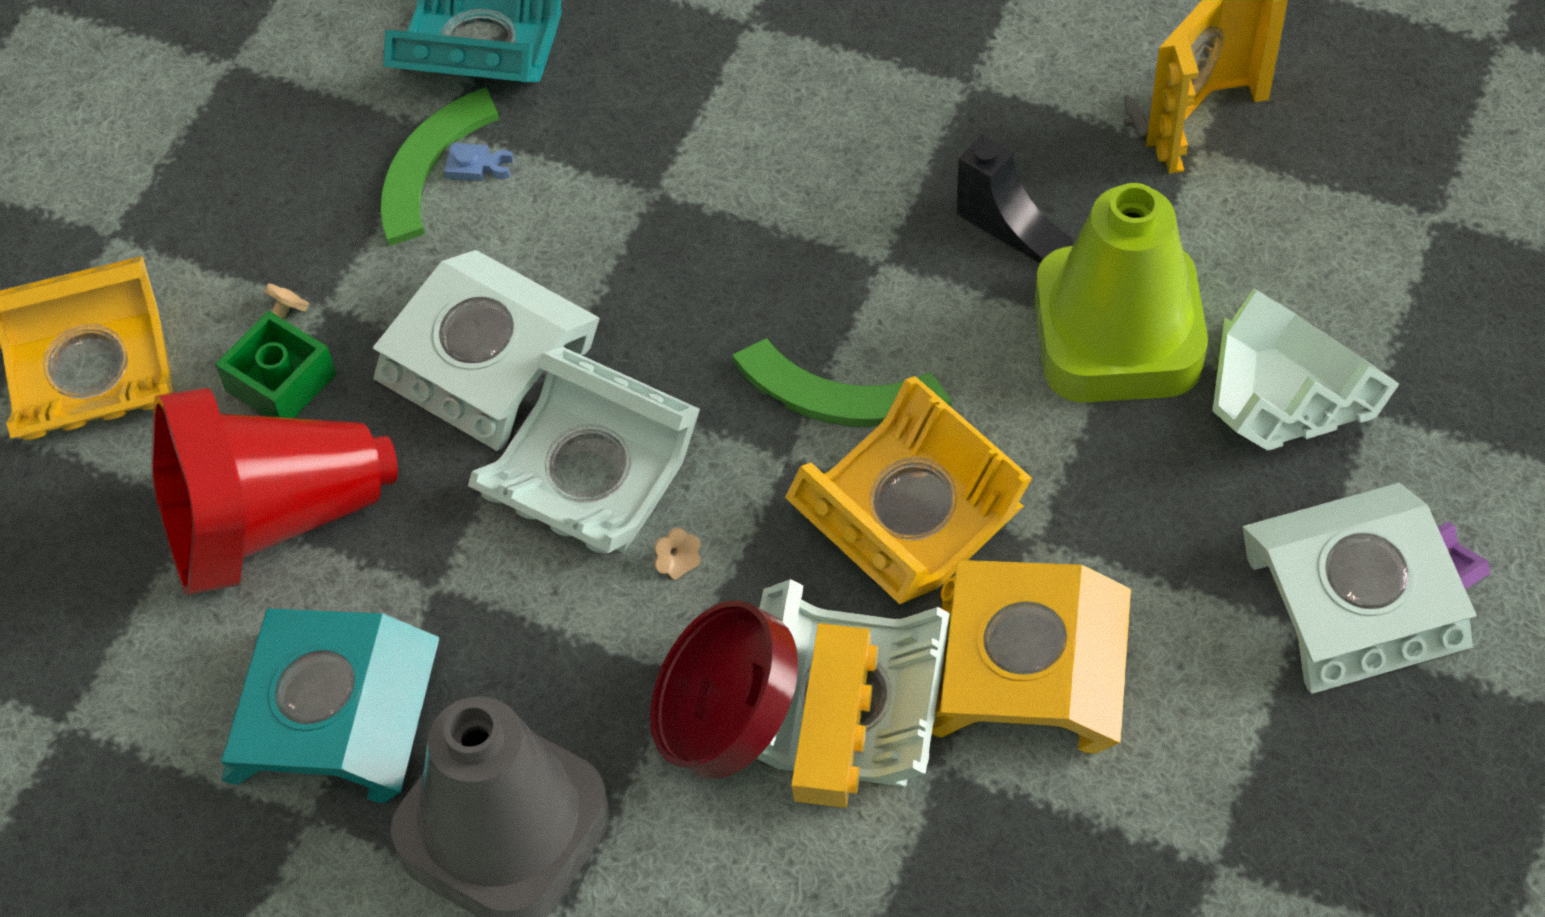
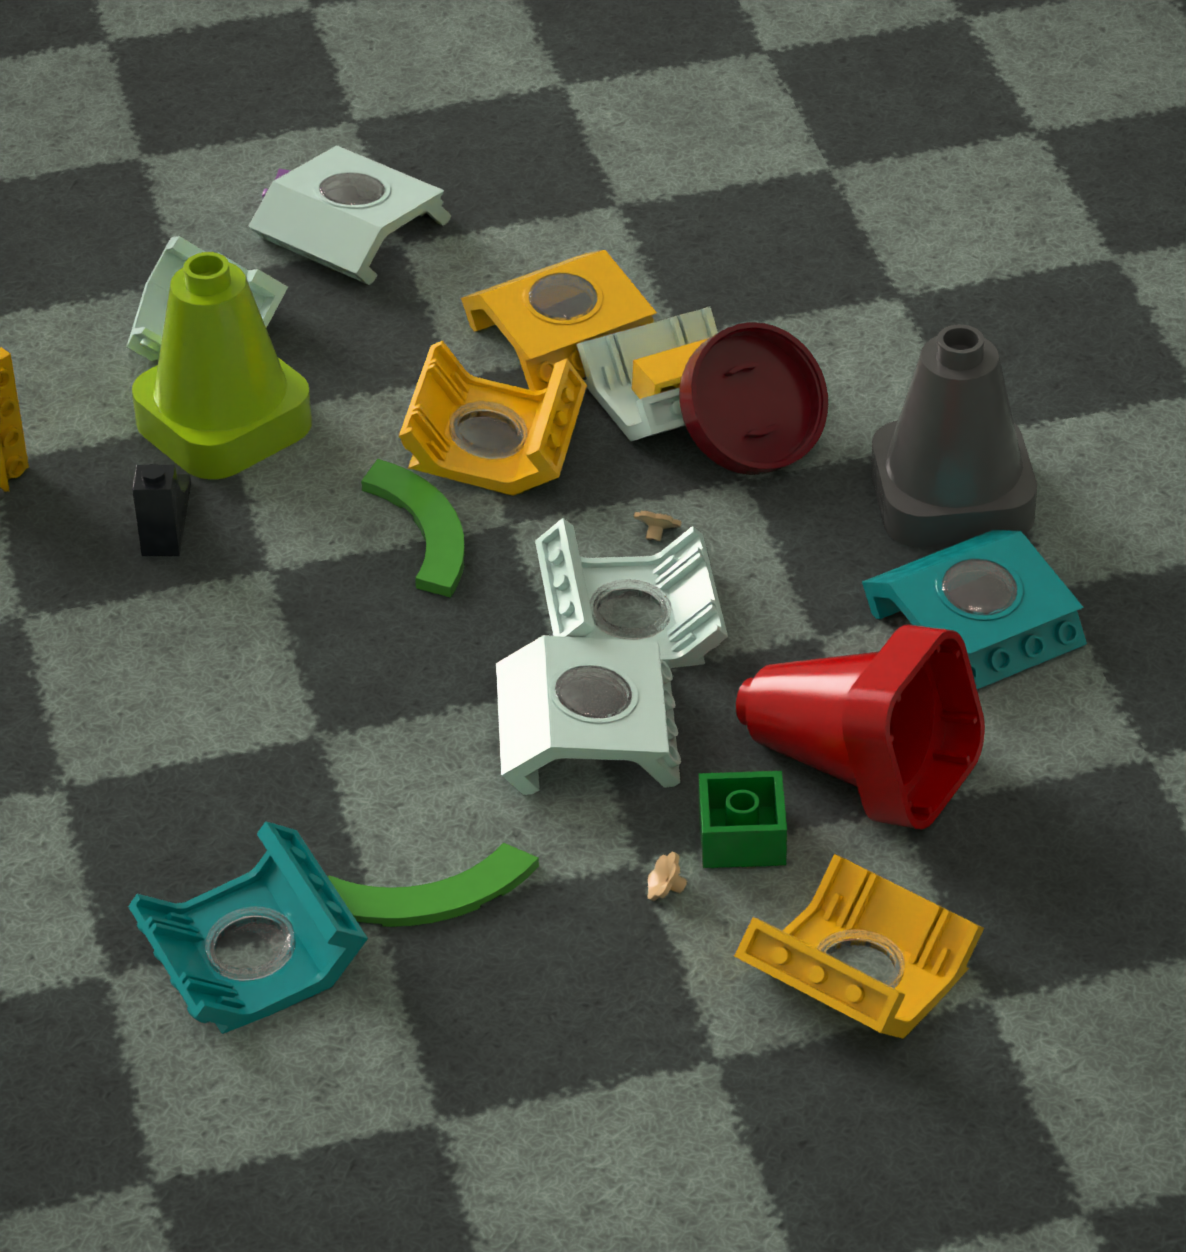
camera: 130 degrees left, 15 degrees down
(474, 160) = (396, 864): medium blue plate -> none

